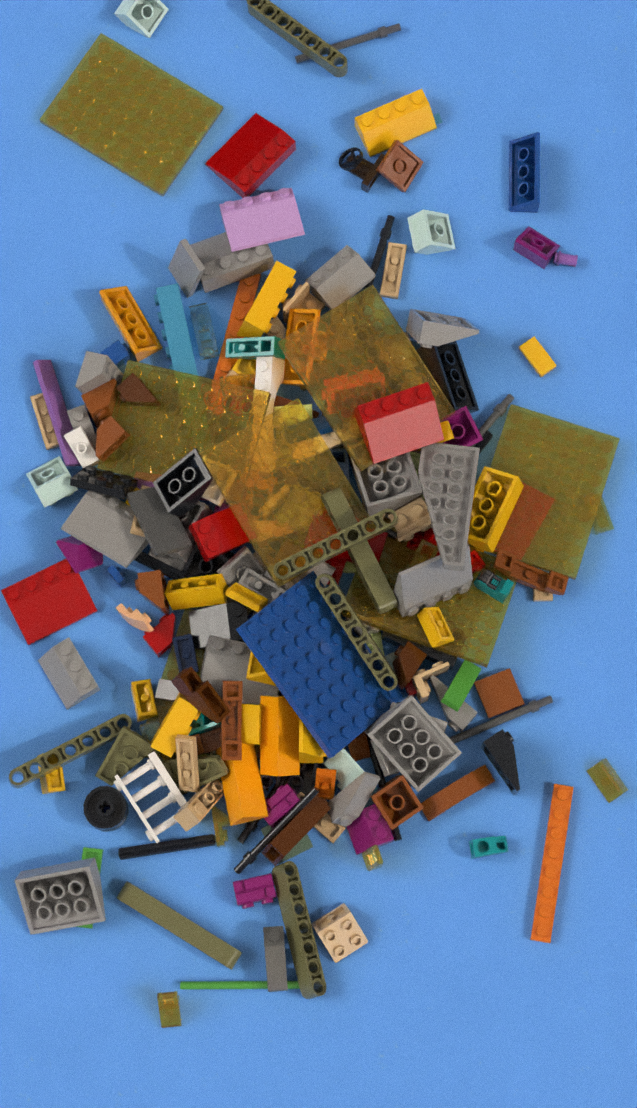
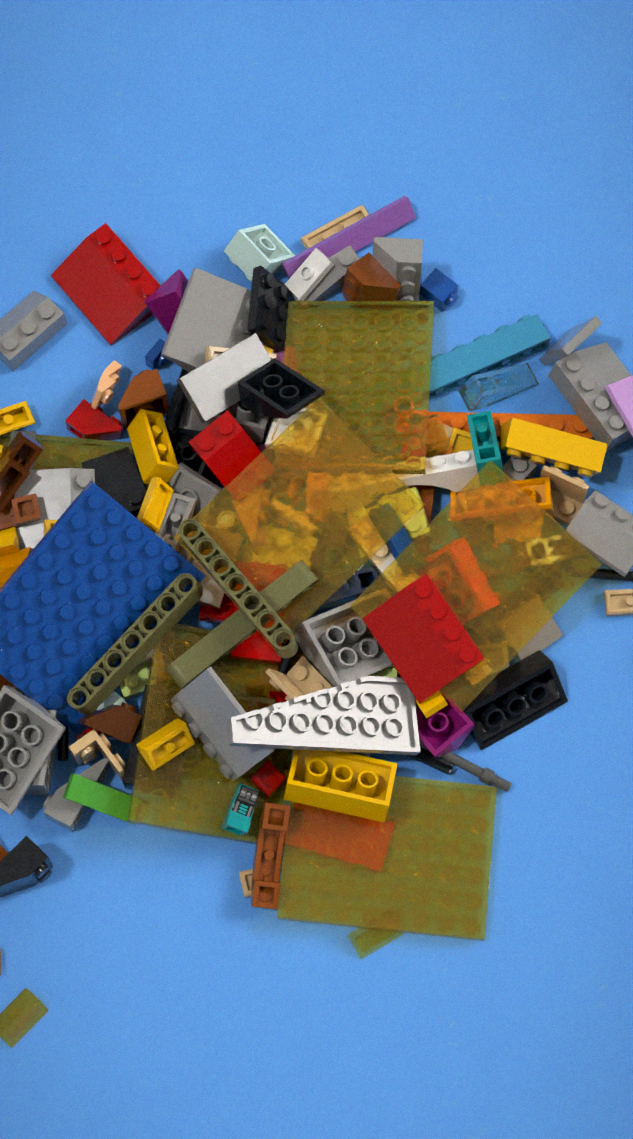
camera: 75 degrees right, 5 degrees down
(109, 437) = (327, 302): dark orange slope -> none
(130, 322) = (486, 296): light orange slope -> none
(136, 392) = (392, 317): reddish brown slope -> none
(185, 652) = (71, 453): dark blue plate -> none
(437, 328) = (569, 665): light grey slope -> none
(499, 693) = (105, 853): dark orange tile -> none
(532, 706) = (96, 899): dark grey bar -> none
(537, 356) = (572, 810): yellow tile -> none

